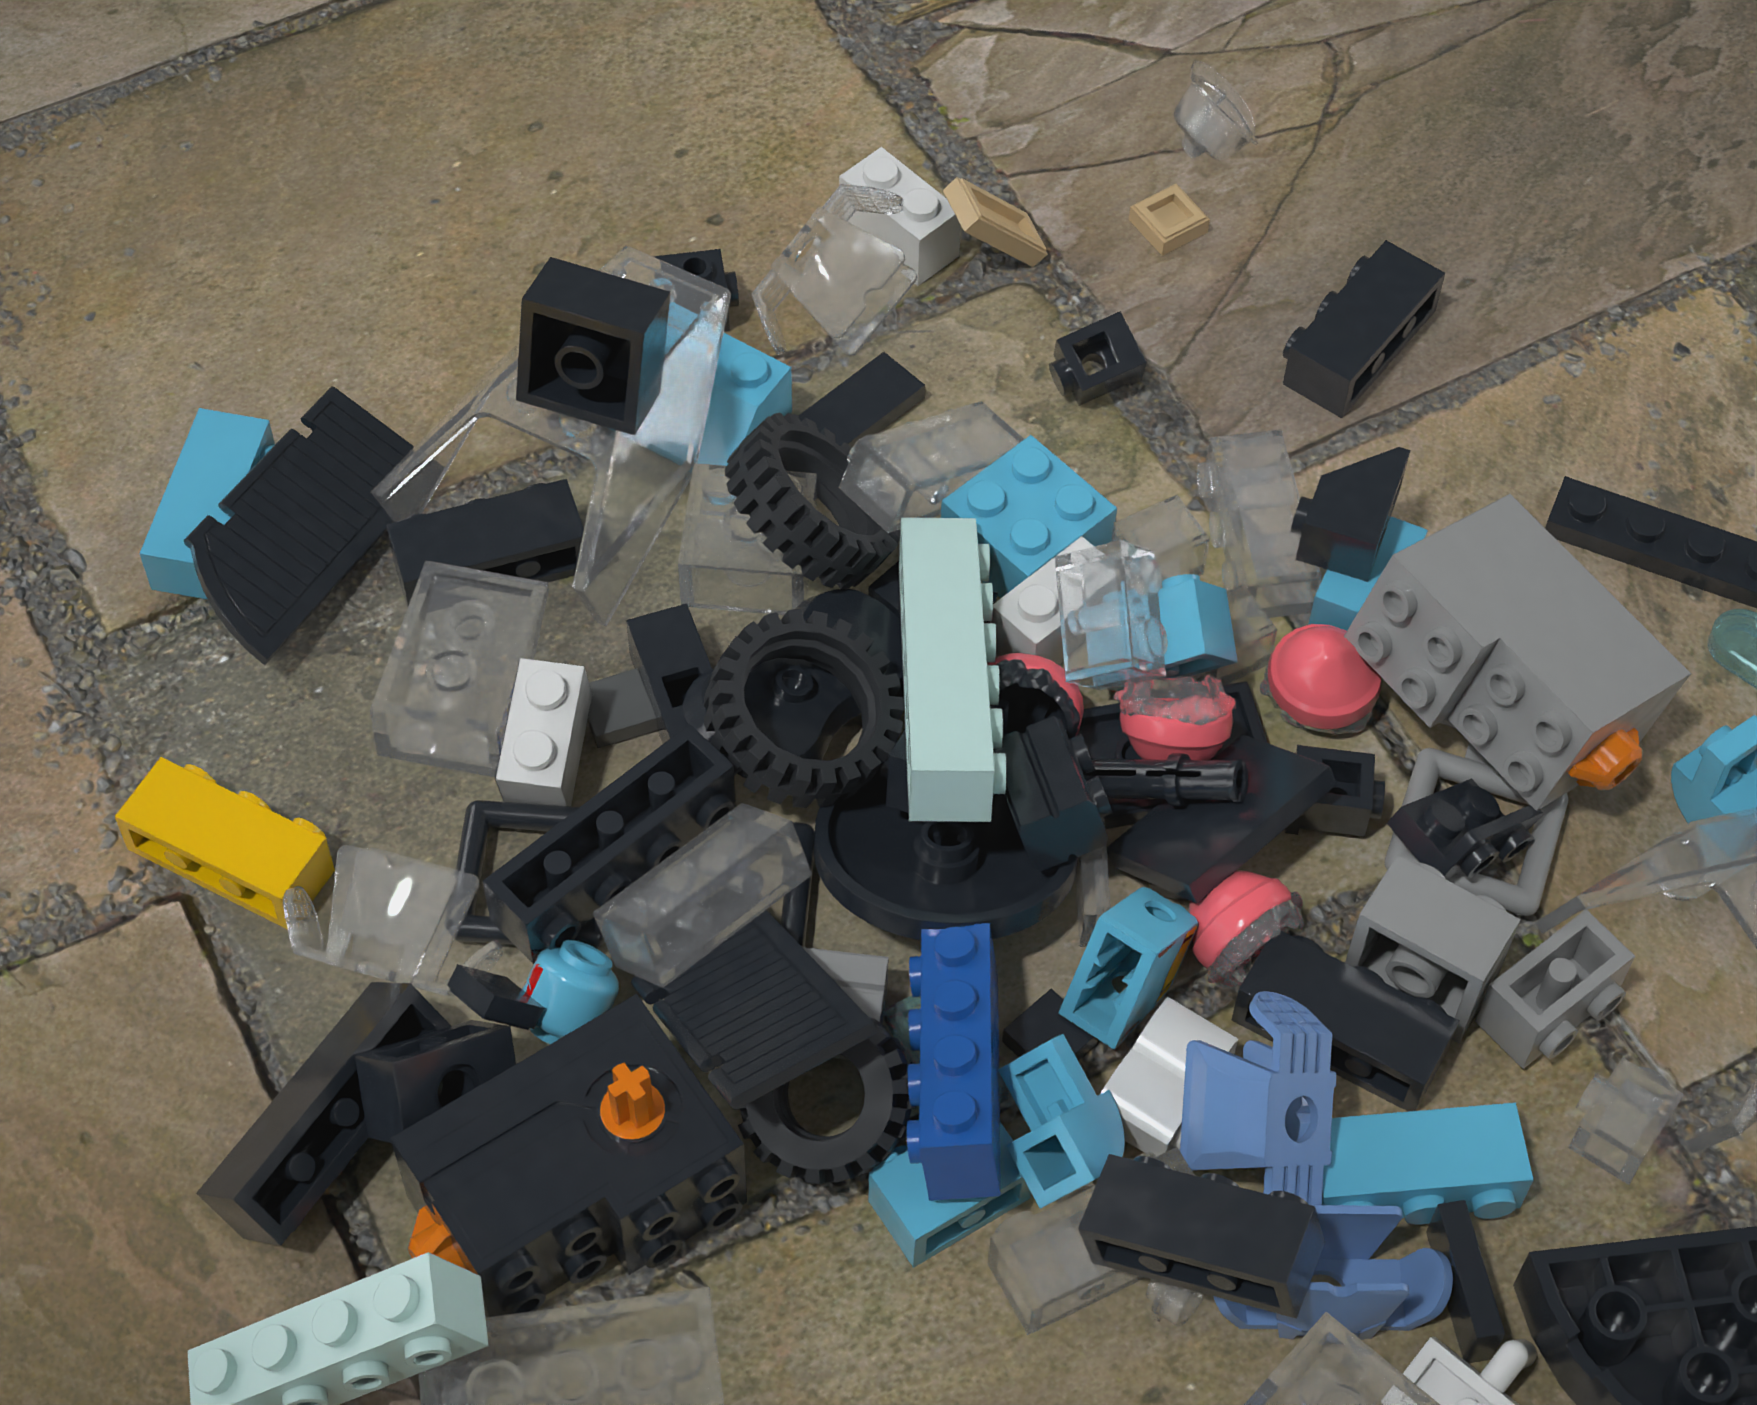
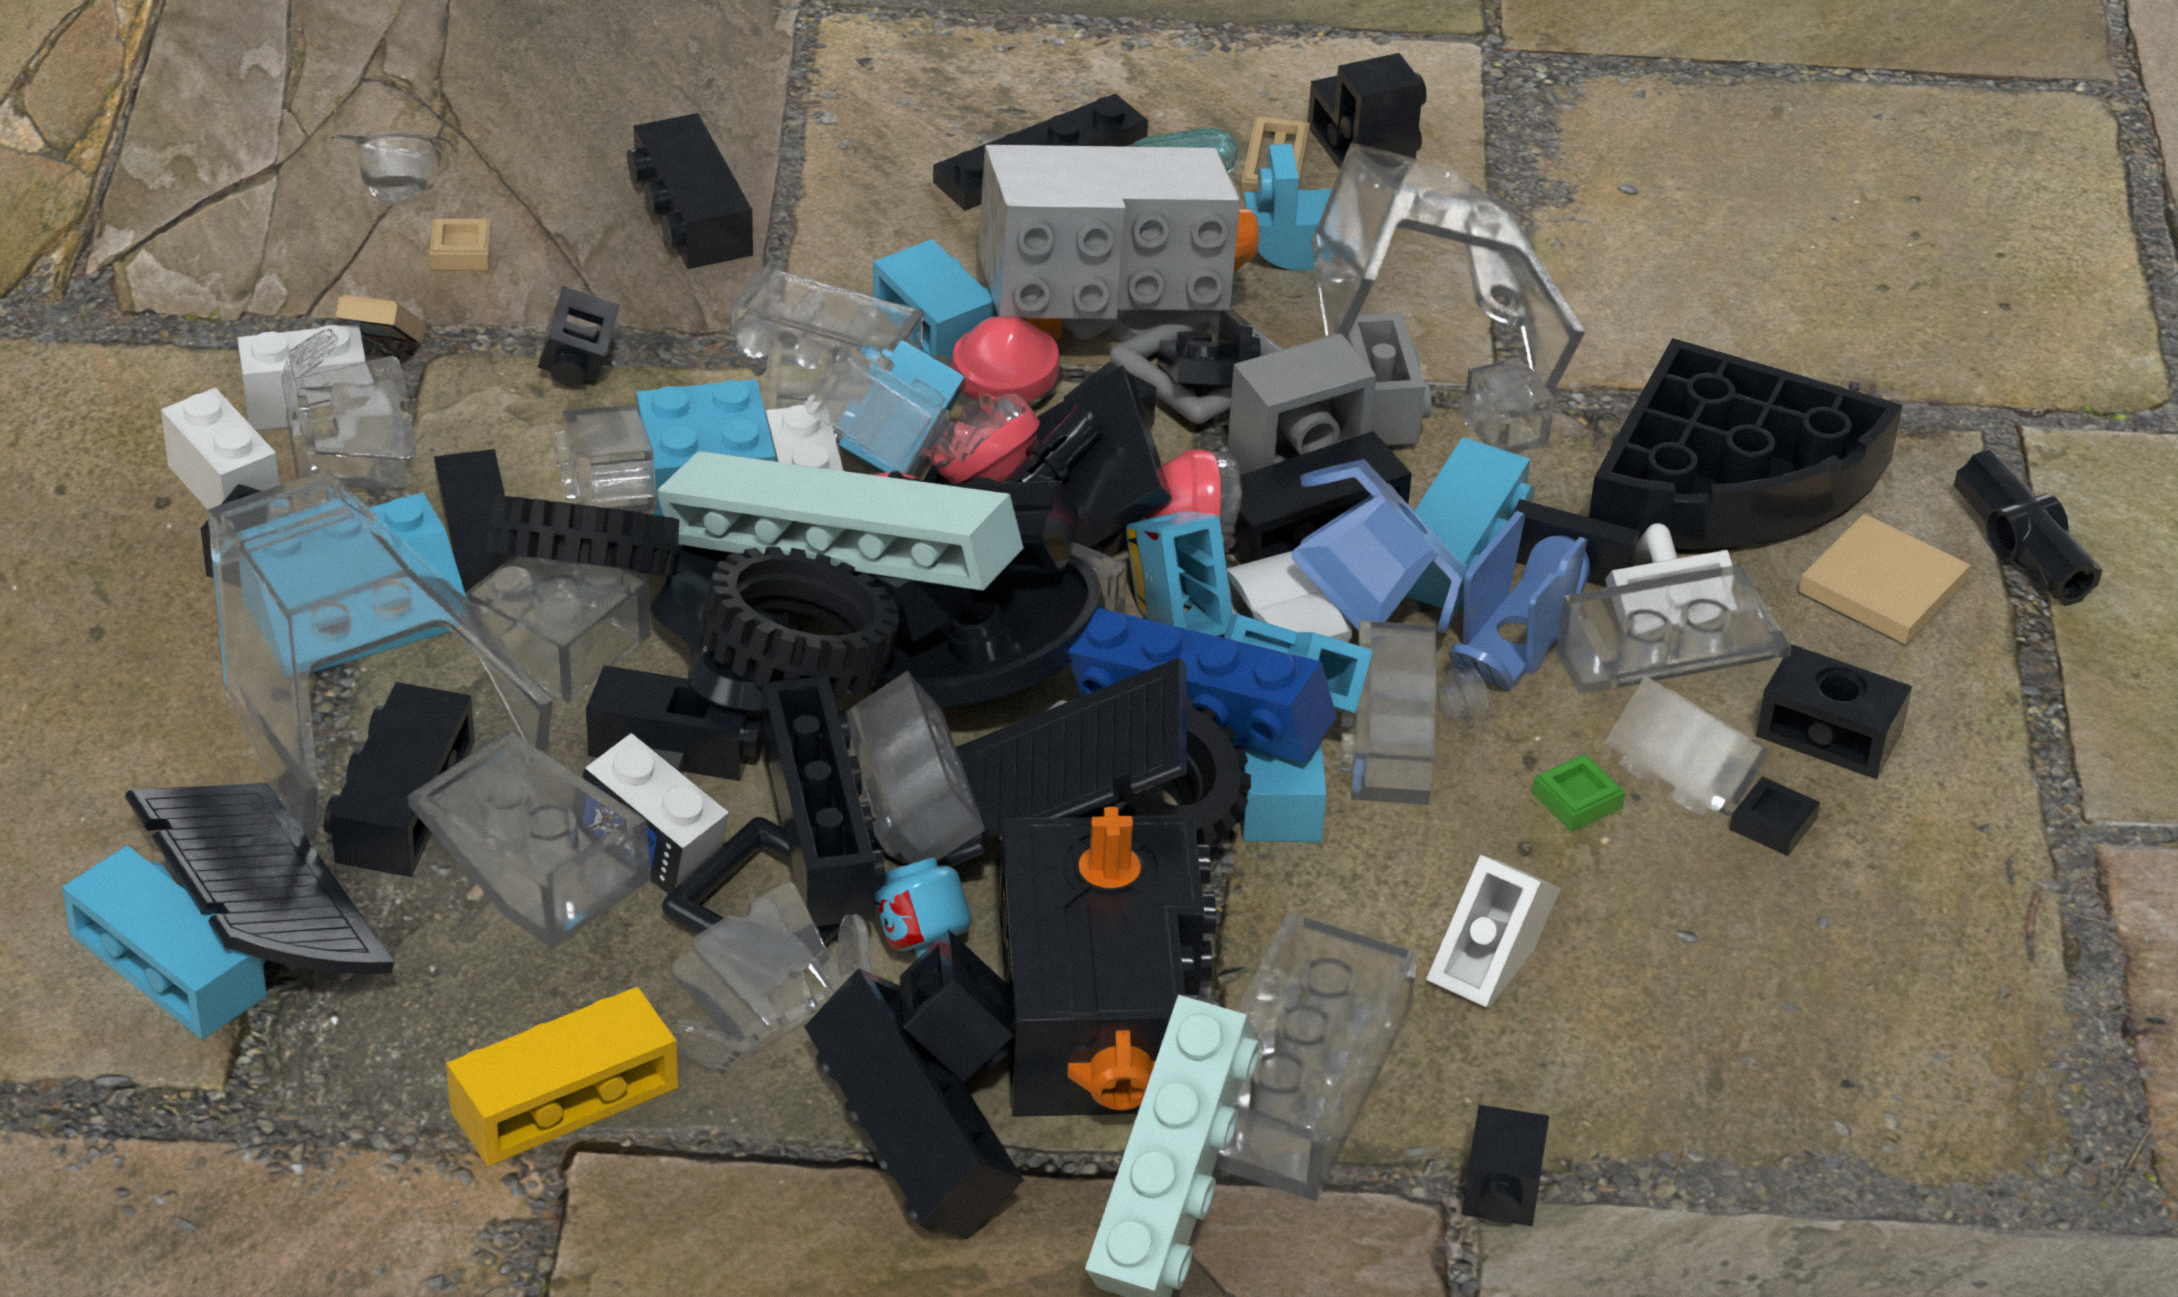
camera: 60 degrees left, 15 degrees down
(495, 997) = (906, 933): black tile -> none
(592, 345) = (368, 521): black brick -> none
(762, 217) = (216, 448): none -> white brick
(1203, 1234) = (1466, 611): black brick -> none
(1350, 514) = (900, 256): black slope -> none

